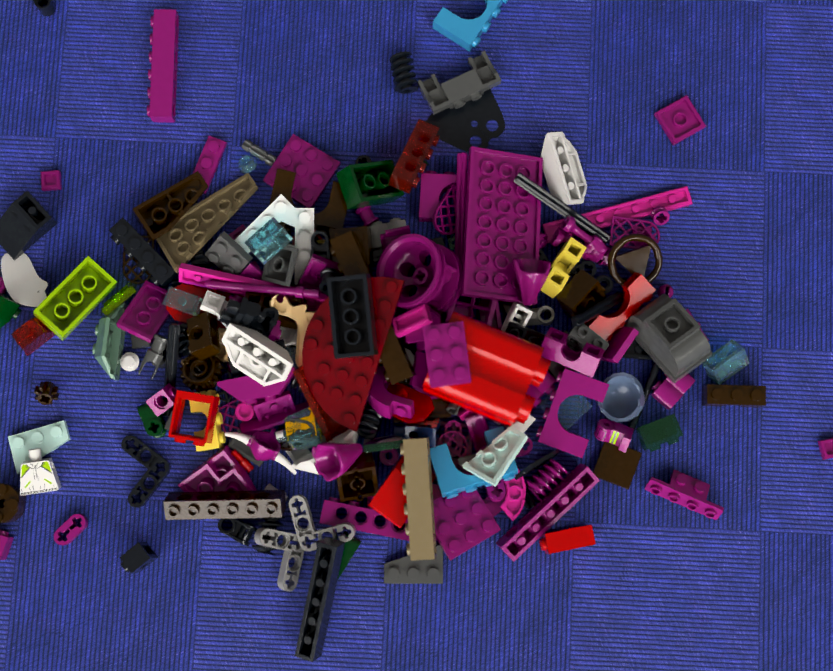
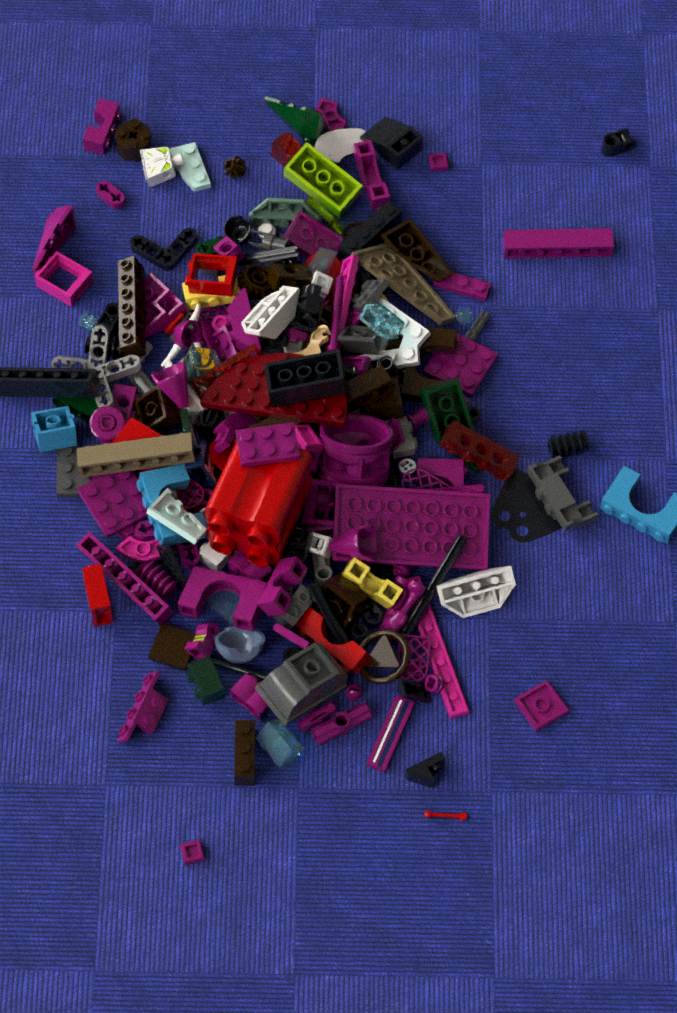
camera: 85 degrees right, 20 degrees down
(52, 253) = (367, 166): none -> magenta arch
(116, 587) = (57, 230): none -> magenta wedge
(129, 391) = (237, 229): none -> black hair
(138, 557) = (83, 242): black brick -> none
(191, 562) = (76, 290): none -> dark pink window
(236, 551) = (87, 321): none -> clear light blue wheel
(318, 491) = (141, 381): none -> dark grey axle
(371, 529) = (106, 423): none -> magenta wheel
(372, 586) = (54, 429): none -> dark azure brick
(422, 228) = (405, 465): none -> tile
(670, 236) = (413, 691): none -> black slope
(708, 259) = (390, 733): none -> magenta tile
(709, 314) = (330, 728): none -> magenta piece
(750, 232) = (421, 772): none -> black slope
(790, 198) = (462, 816): none -> red hinge

